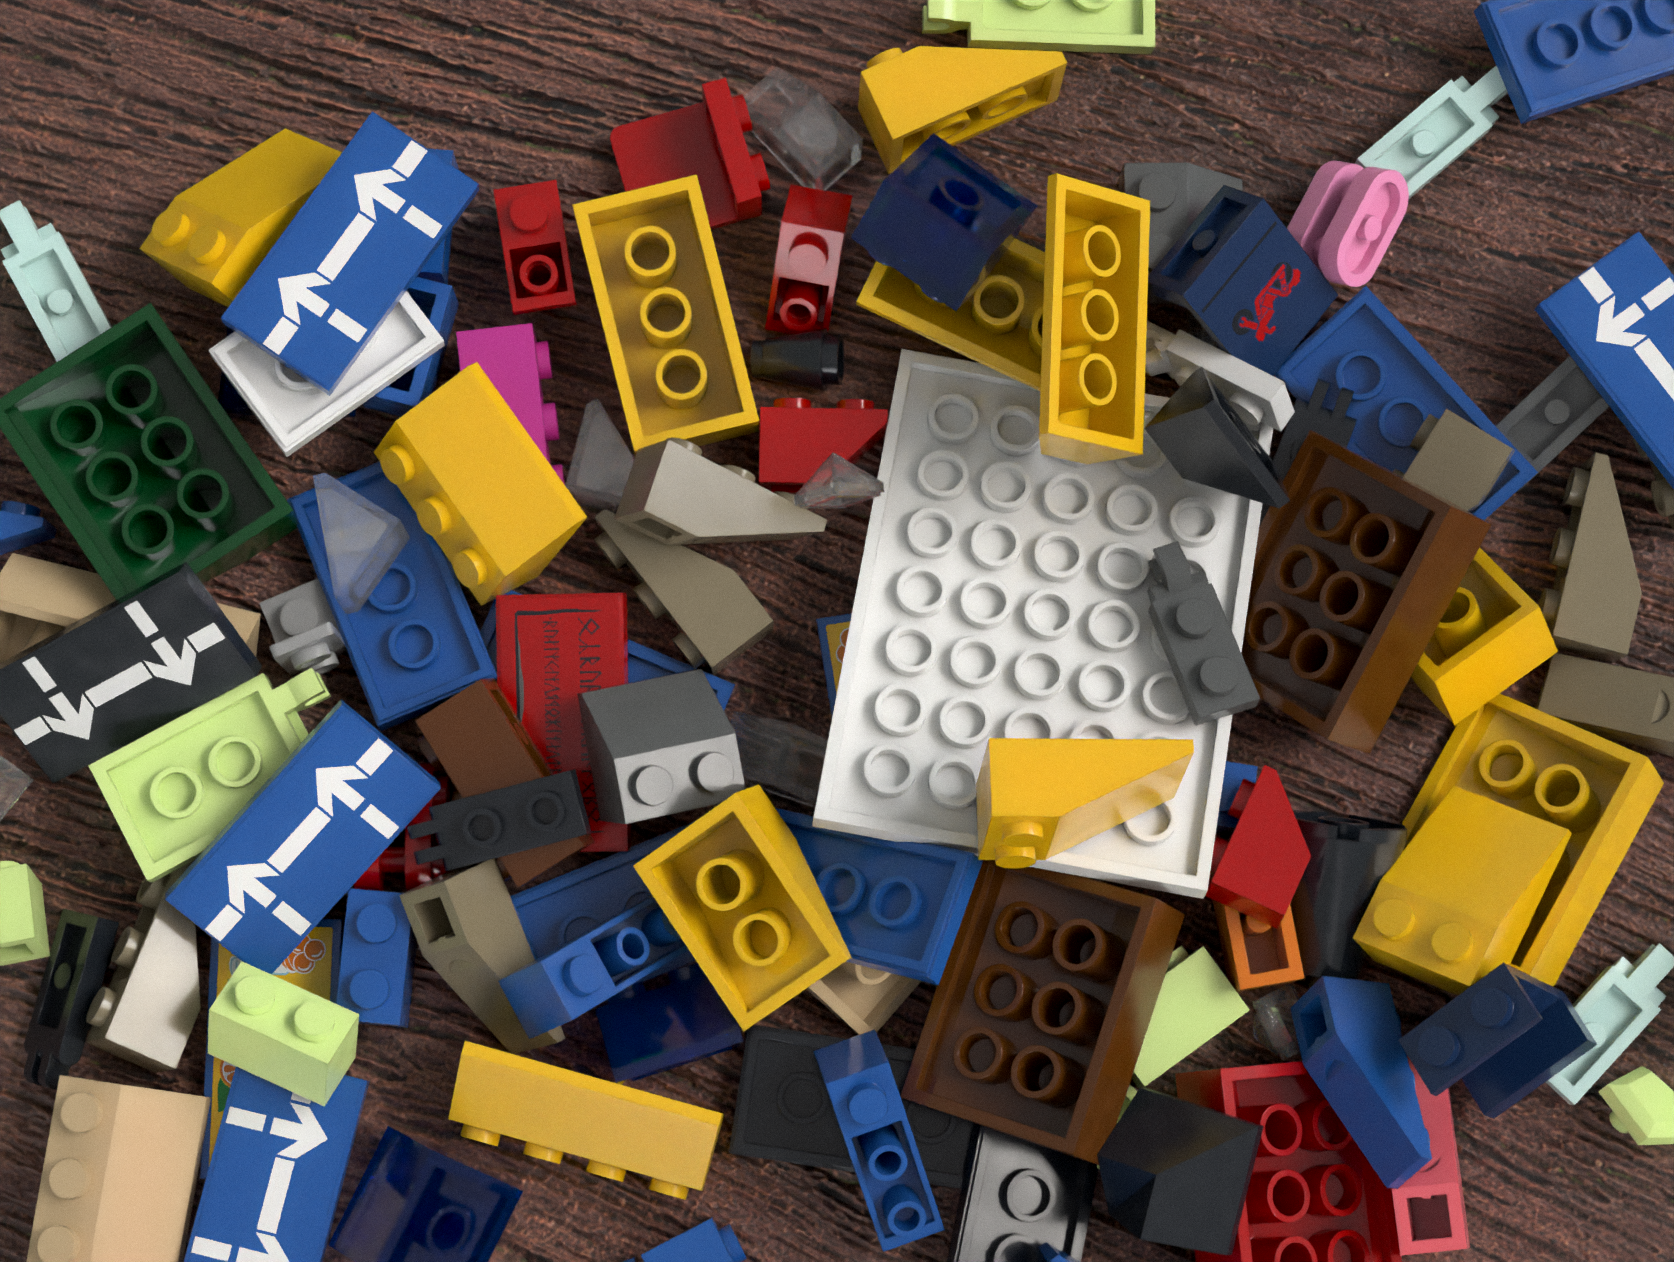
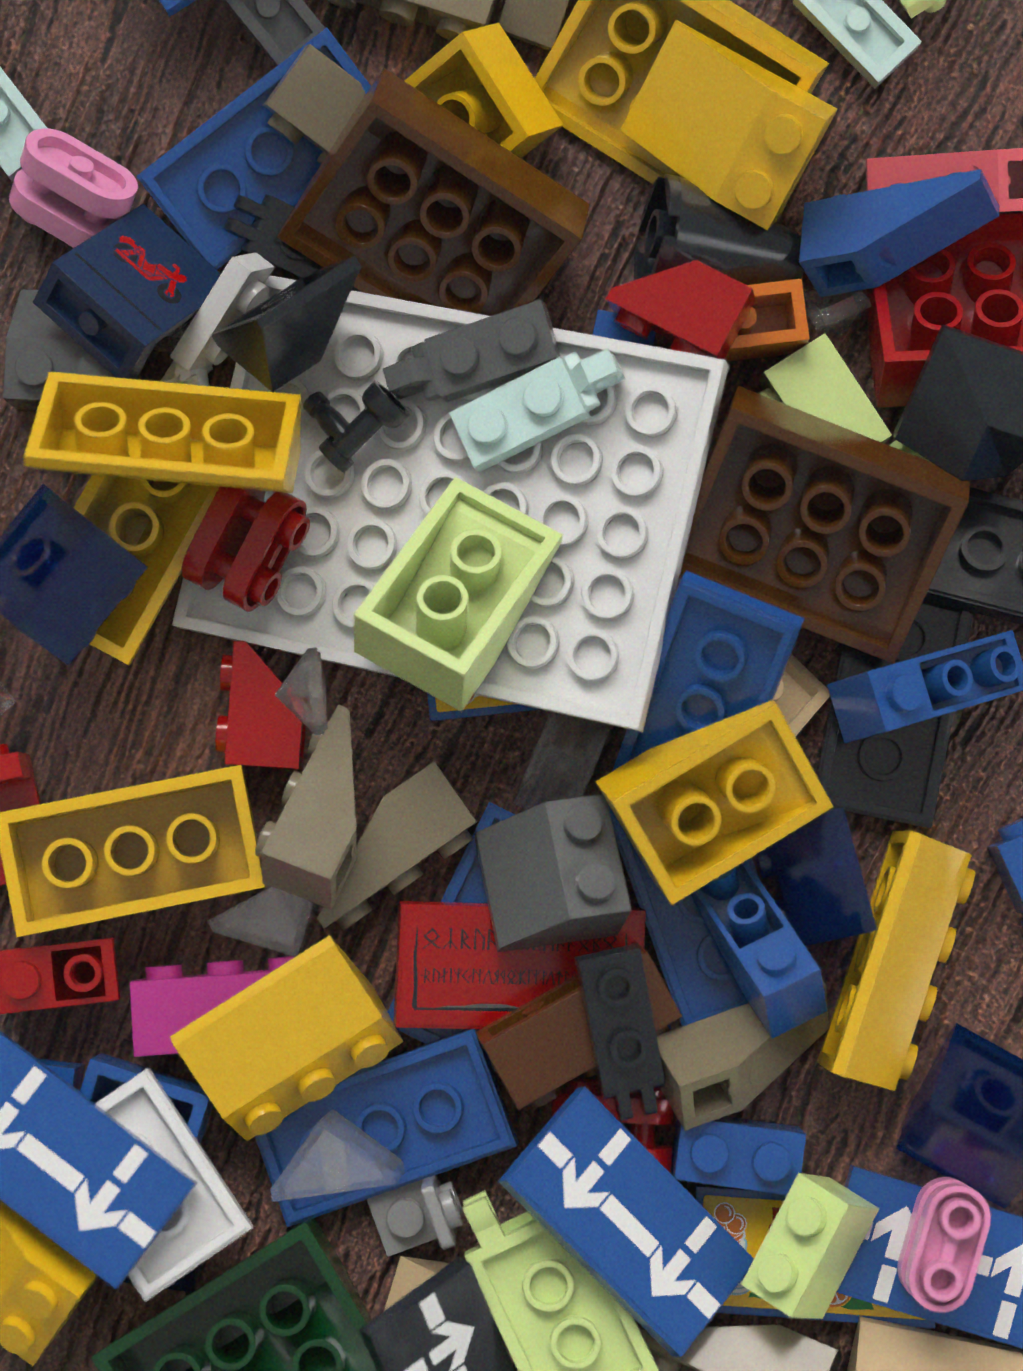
camera: 80 degrees left, 5 degrees up
(289, 1173) = (944, 1244): none -> bright pink brick
(800, 359) = (176, 723): black cone -> none
(808, 260) = (80, 710): red slope -> none
(946, 624) = (454, 593): none -> yellowish green slope
(985, 414) = (245, 544): none -> red brick
(1059, 792) = (632, 499): yellow slope -> none
(1104, 511) = (346, 438): none -> black piece
(1143, 688) = (533, 407): none -> light aqua hinge
(1499, 1039) = (869, 102): dark blue panel -> none

